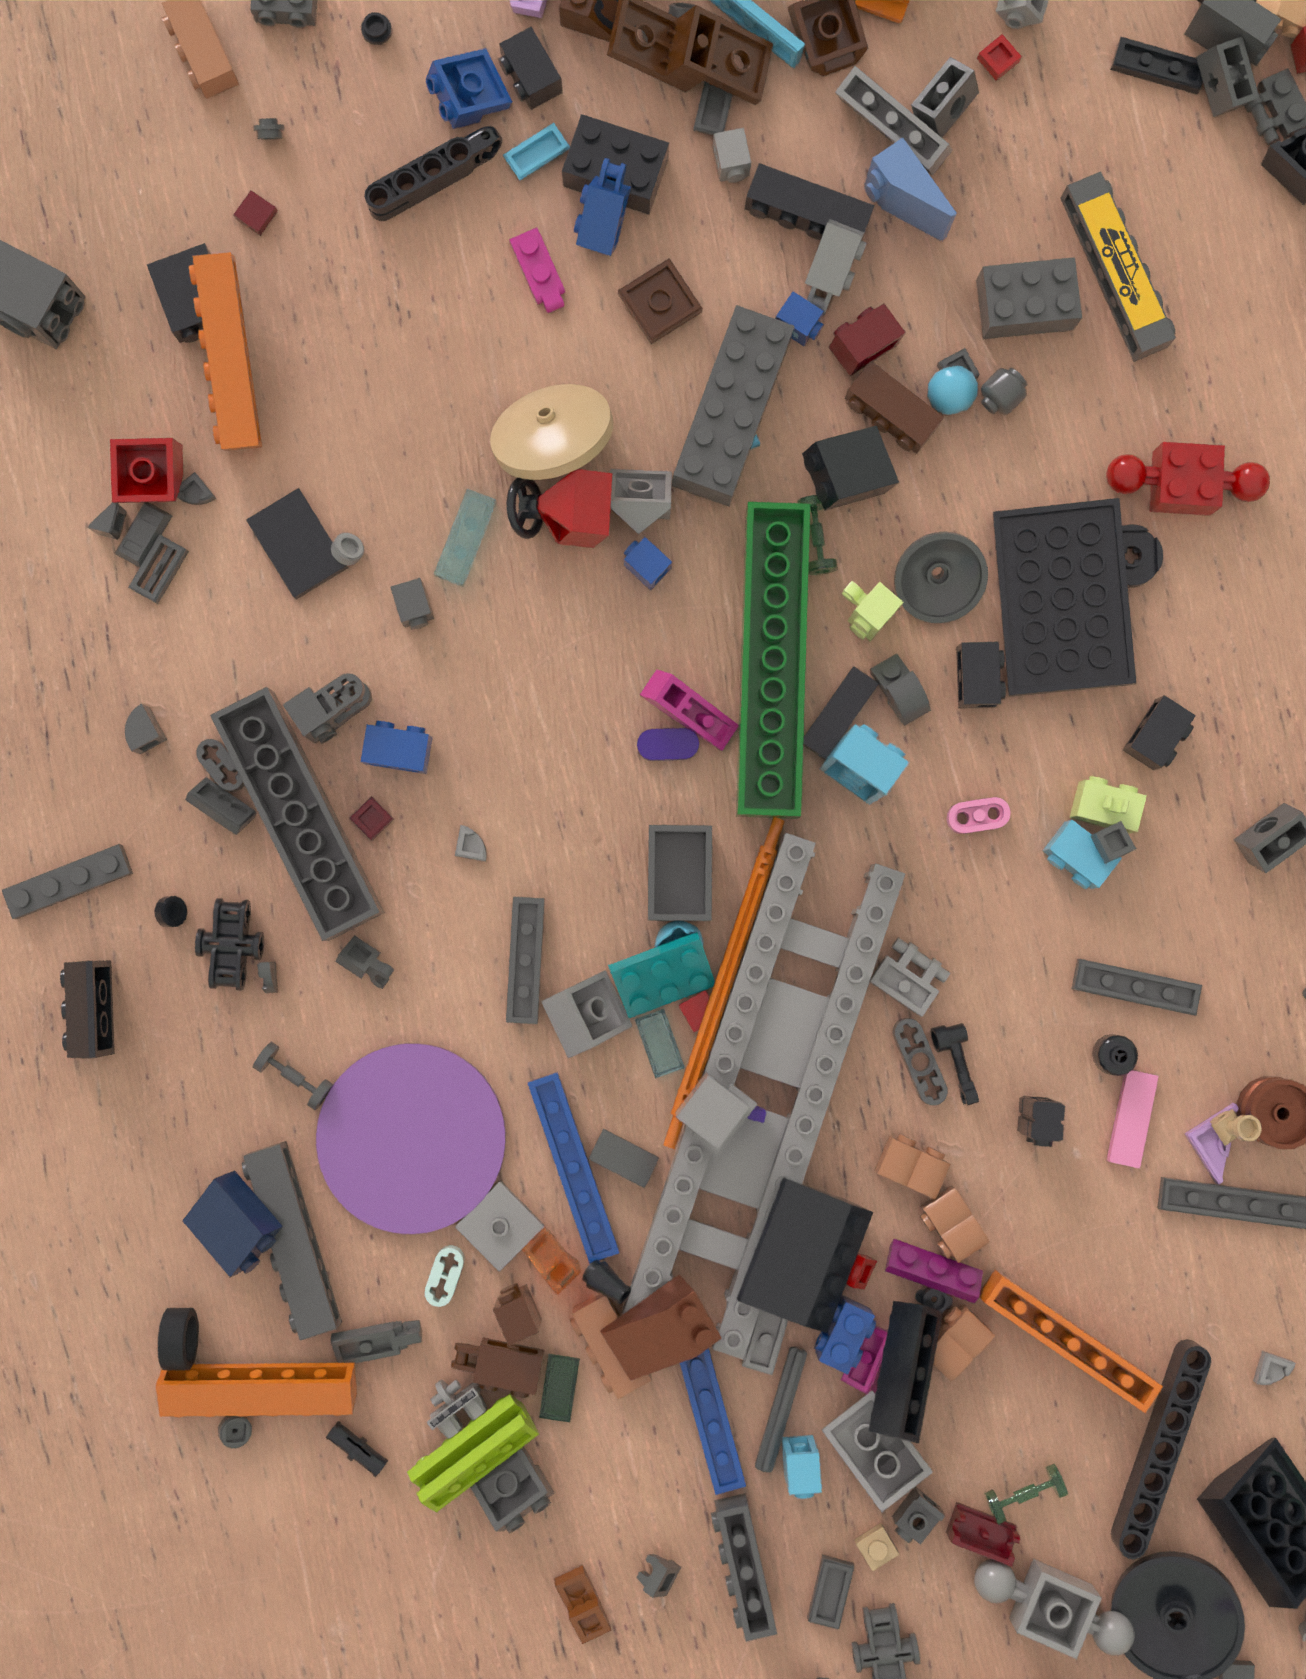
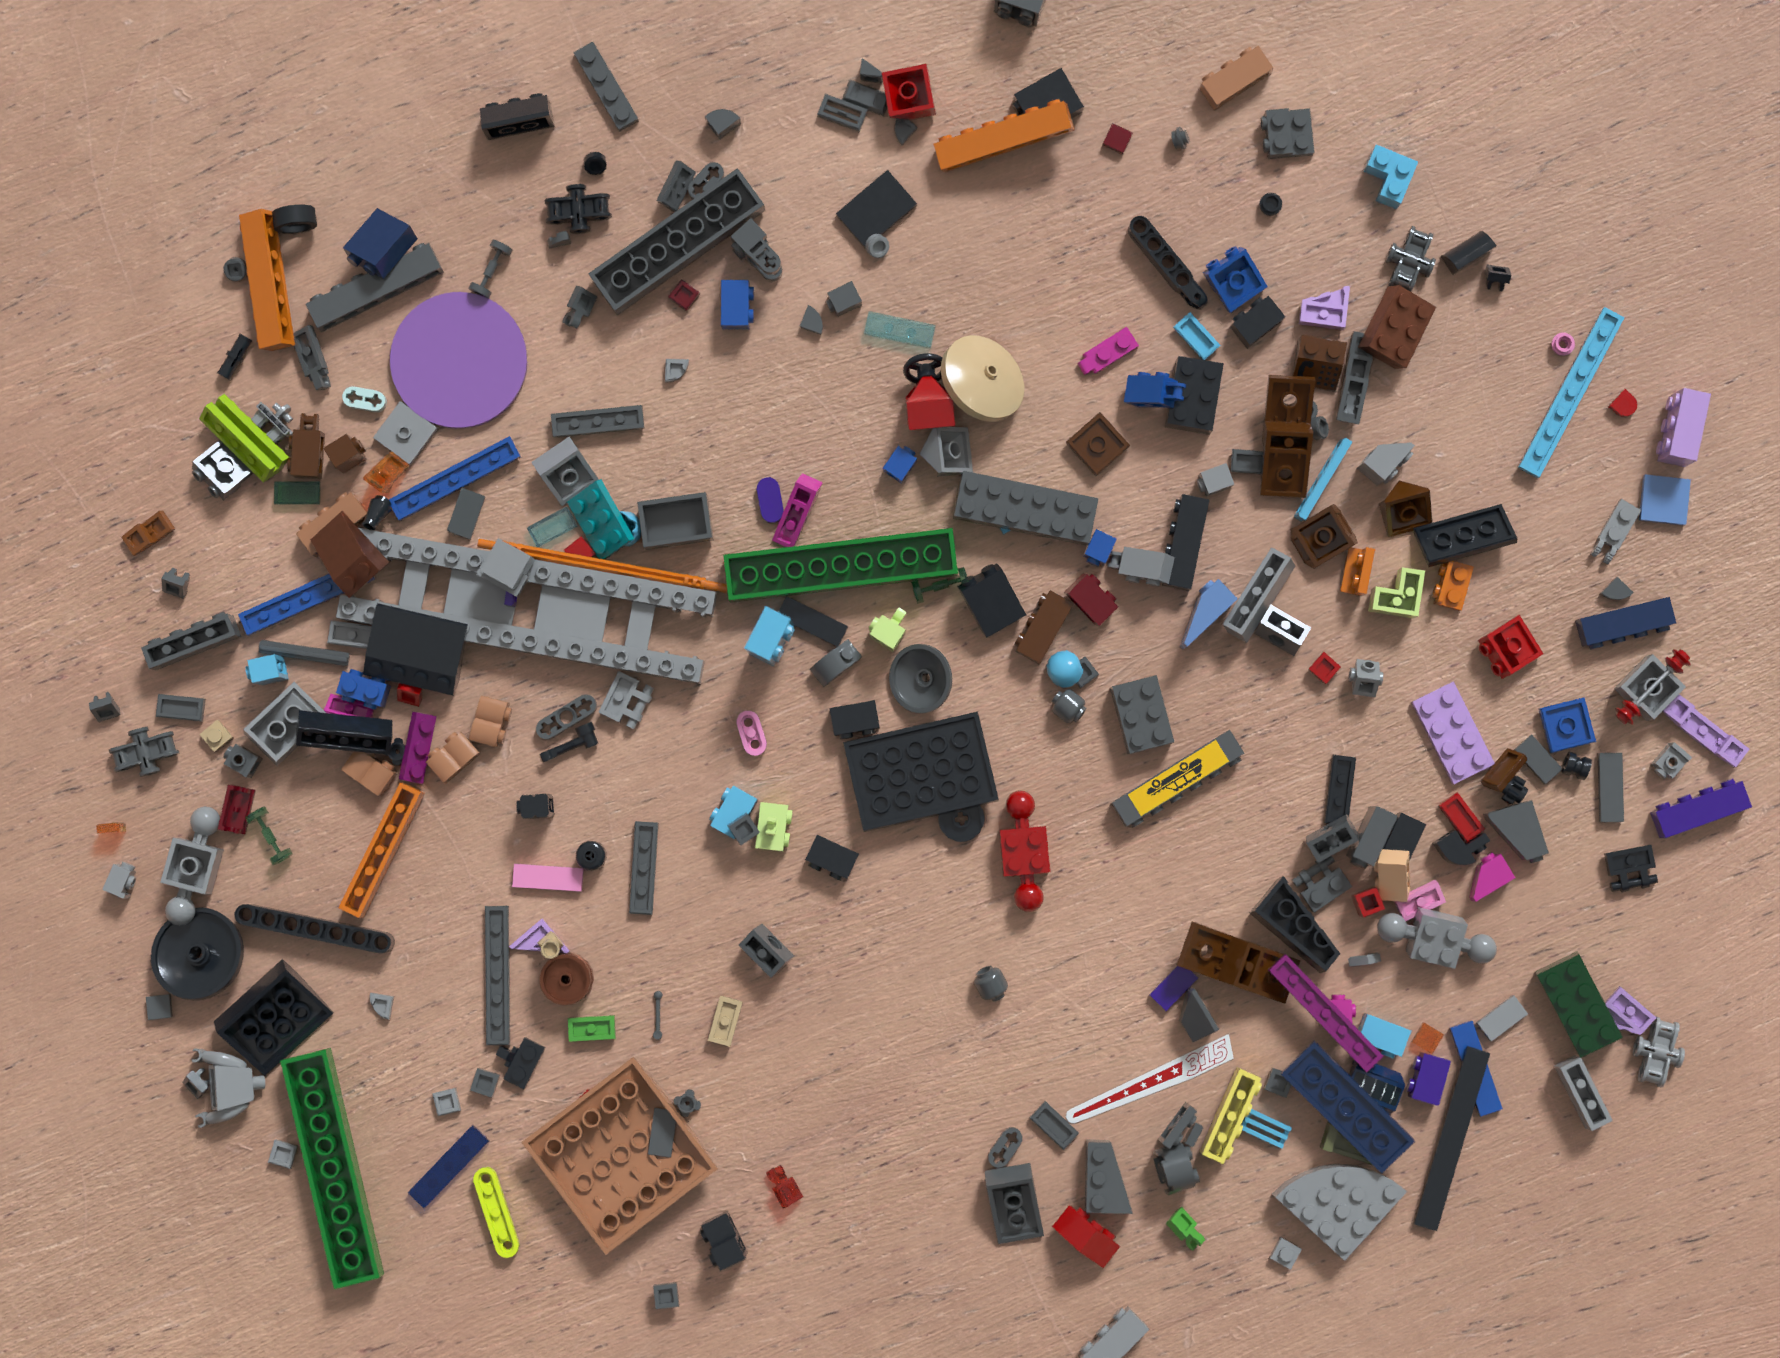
camera: 90 degrees right, 0 degrees up
(434, 651) = (812, 321): none -> dark grey tile

